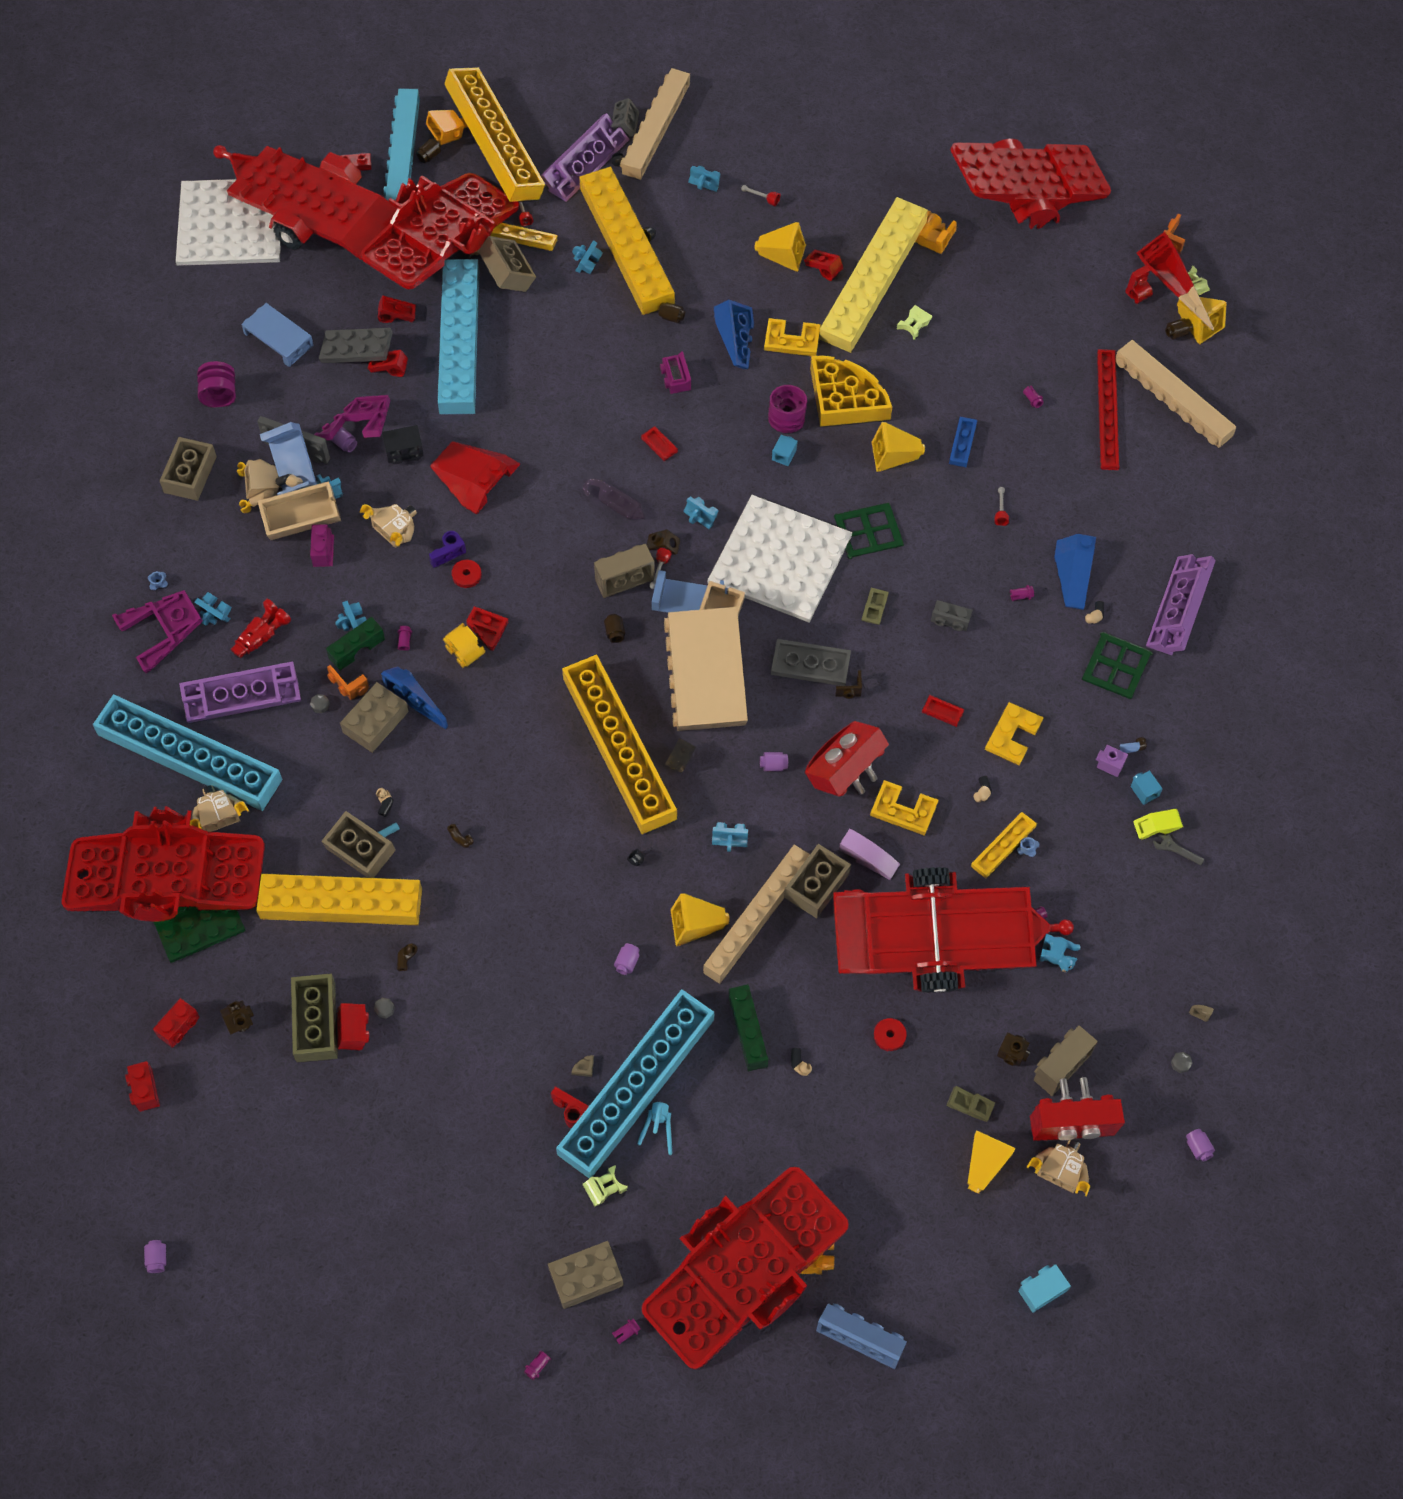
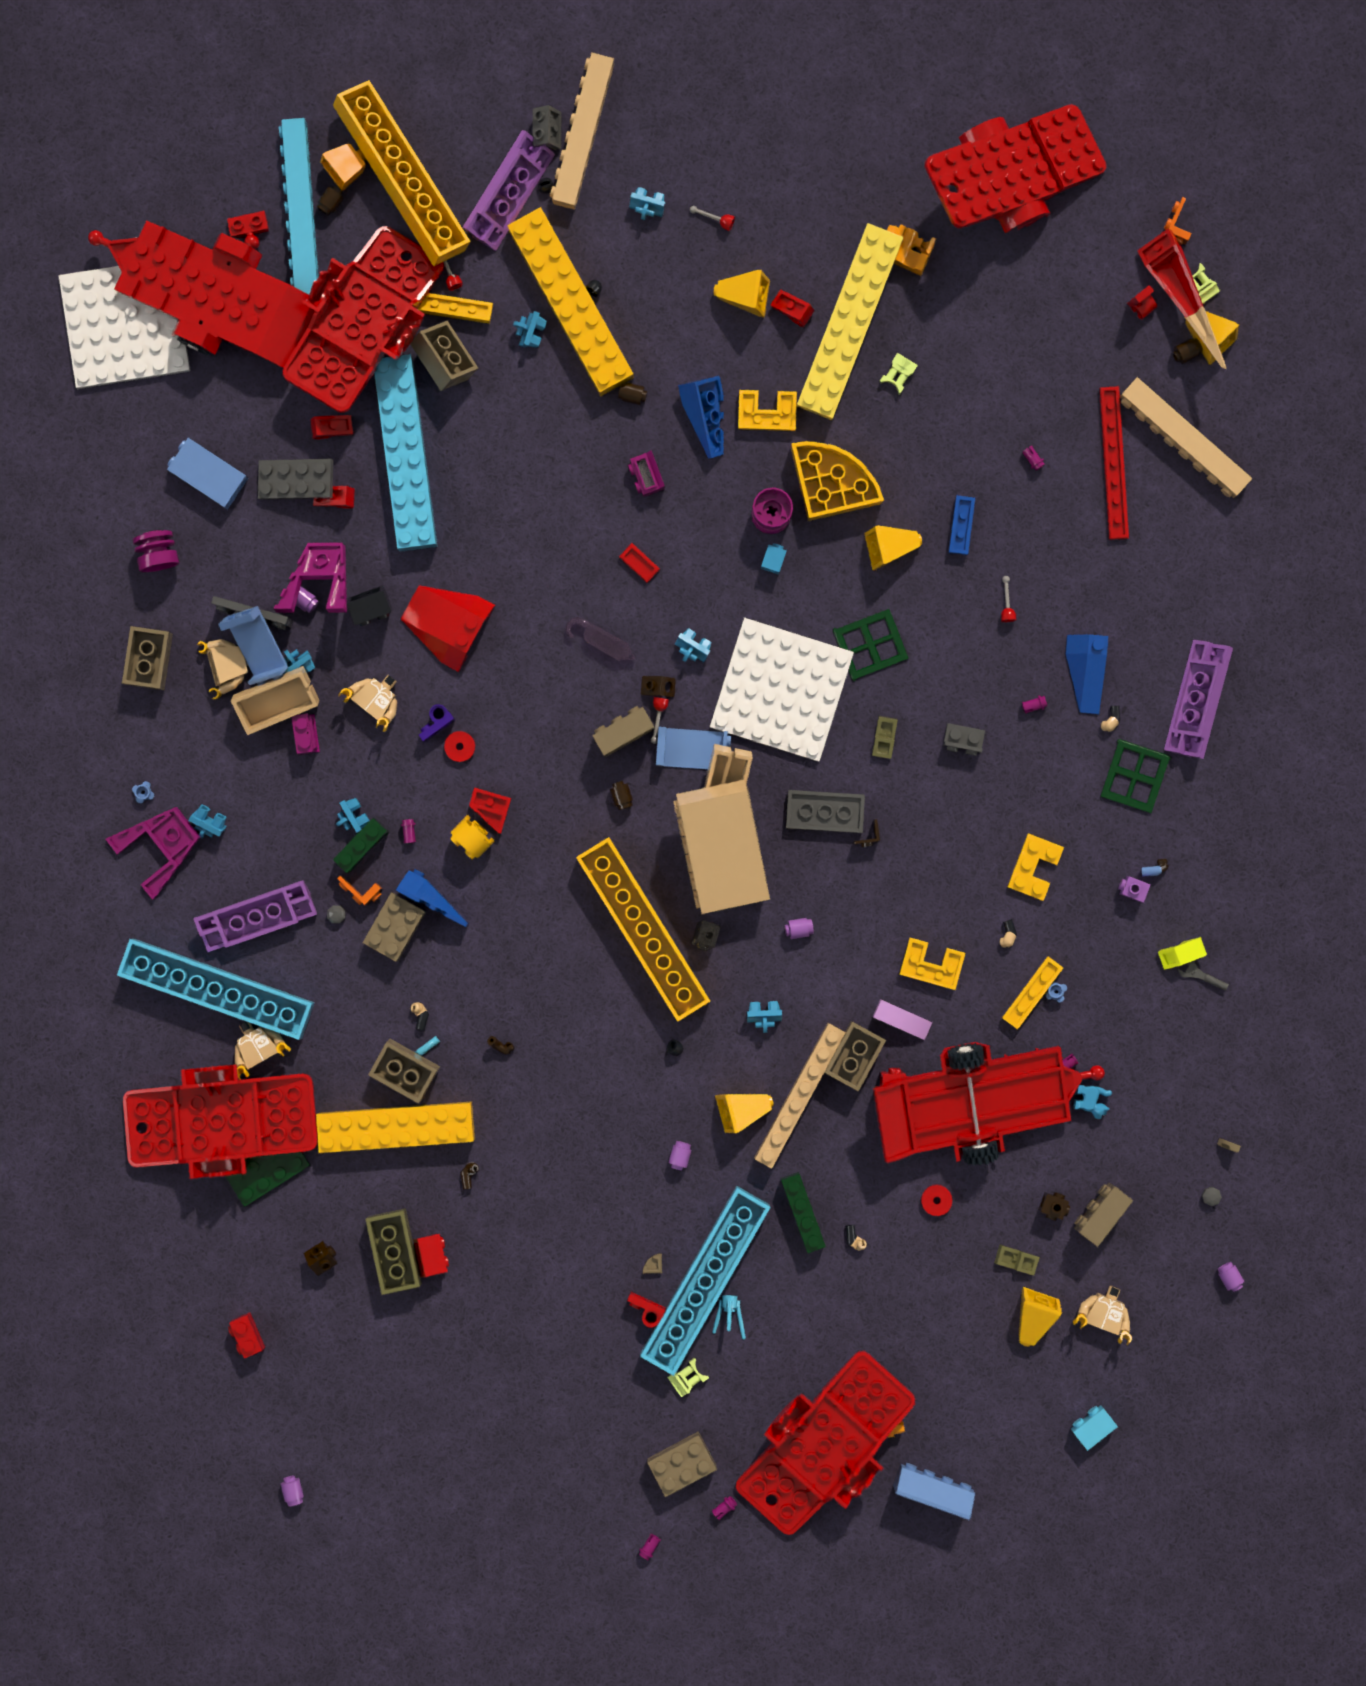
camera: 10 degrees left, 25 degrees up
(176, 1023) = (264, 1270): red brick -> none
(259, 630) = (259, 842): red piece -> none
(288, 479) = (258, 666): arm -> none
(384, 1008) = (457, 1229): dark grey tile -> none
(845, 758) = (869, 922): red piece -> none
(943, 710) = (962, 849): red tile -> none
(1076, 1119) = (1122, 1276): red piece -> none
(1146, 787) = (1169, 914): dark azure brick -> none

